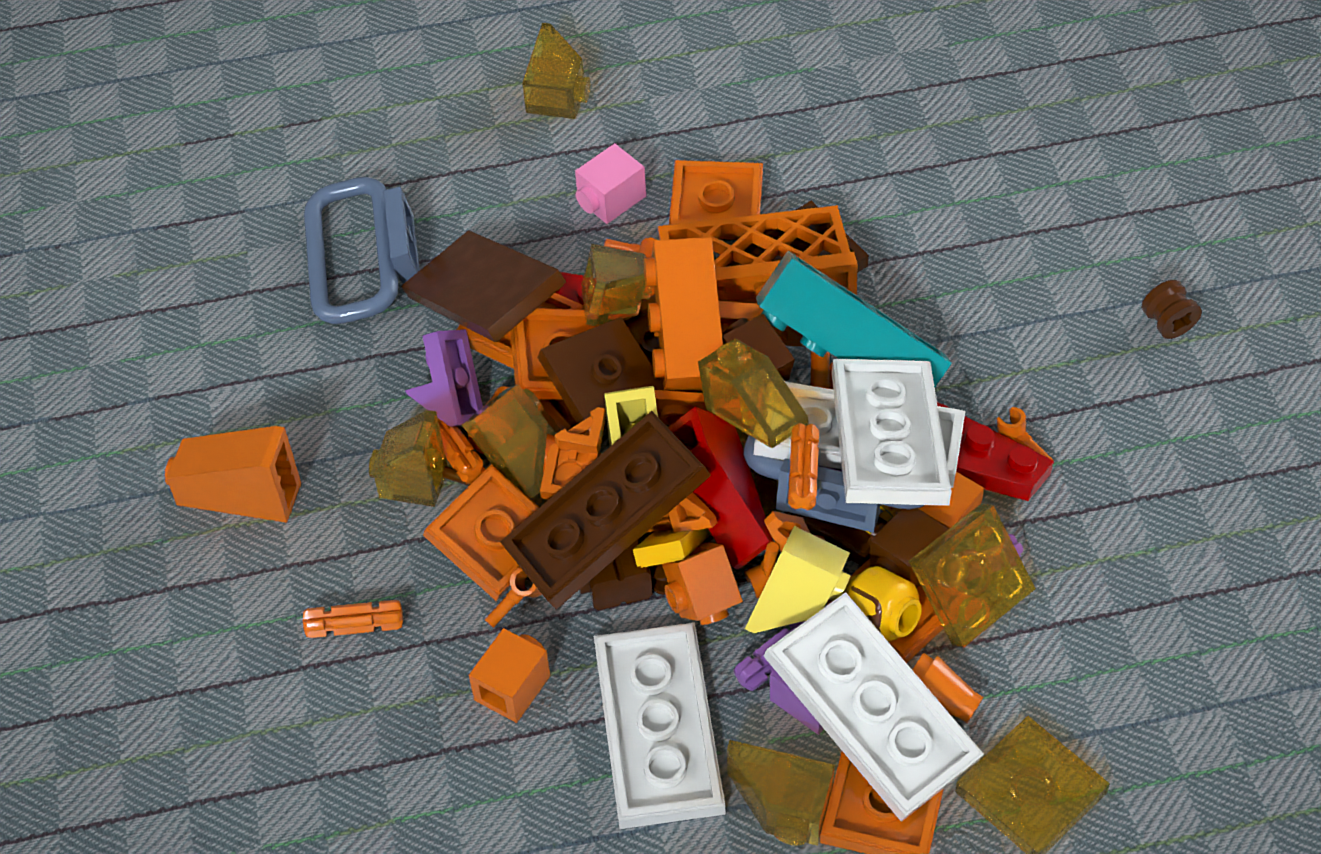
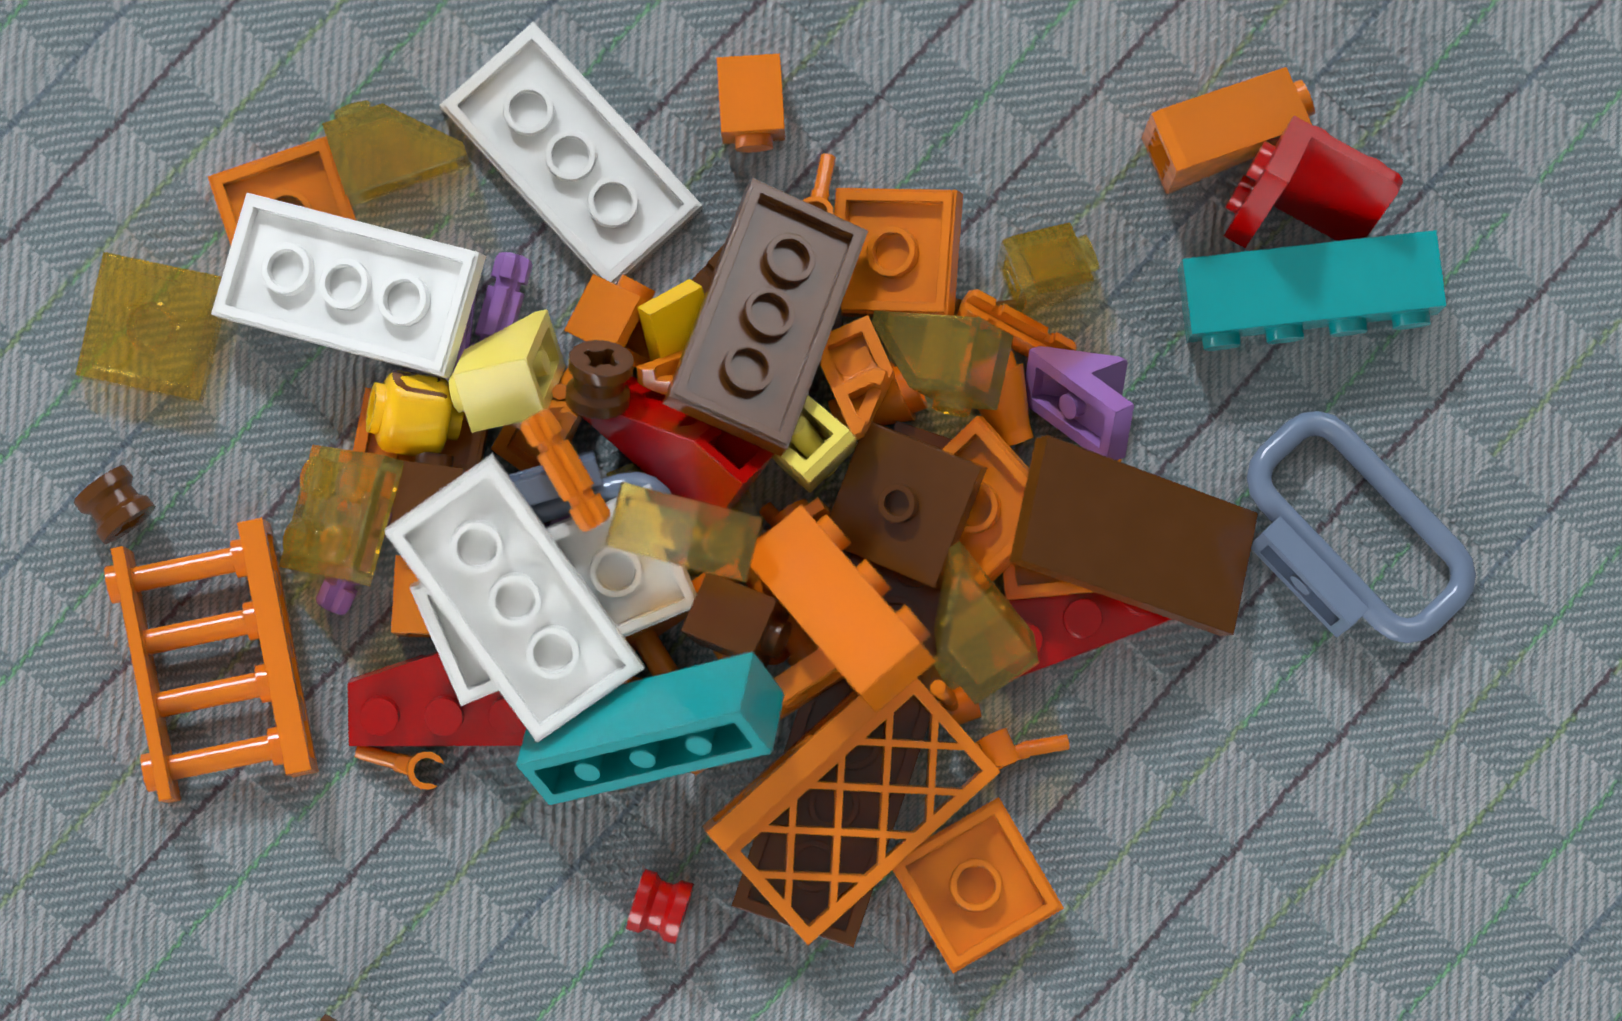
camera: 145 degrees right, 30 degrees up
(216, 406) = (1314, 182): none -> red bracket
(266, 372) = (1311, 288): none -> teal brick
(352, 618) = (970, 64): orange axle -> none
(554, 77) = (1316, 954): clear yellow slope -> none
(610, 183) = (1118, 817): bright pink brick -> none
(754, 529) = (599, 379): none -> reddish brown wheel
(912, 278) = (660, 906): none -> red wheel
(947, 687) = (305, 374): orange cone -> none
(1068, 558) = (260, 619): none -> orange fence
(1130, 681) = (114, 504): none -> reddish brown wheel

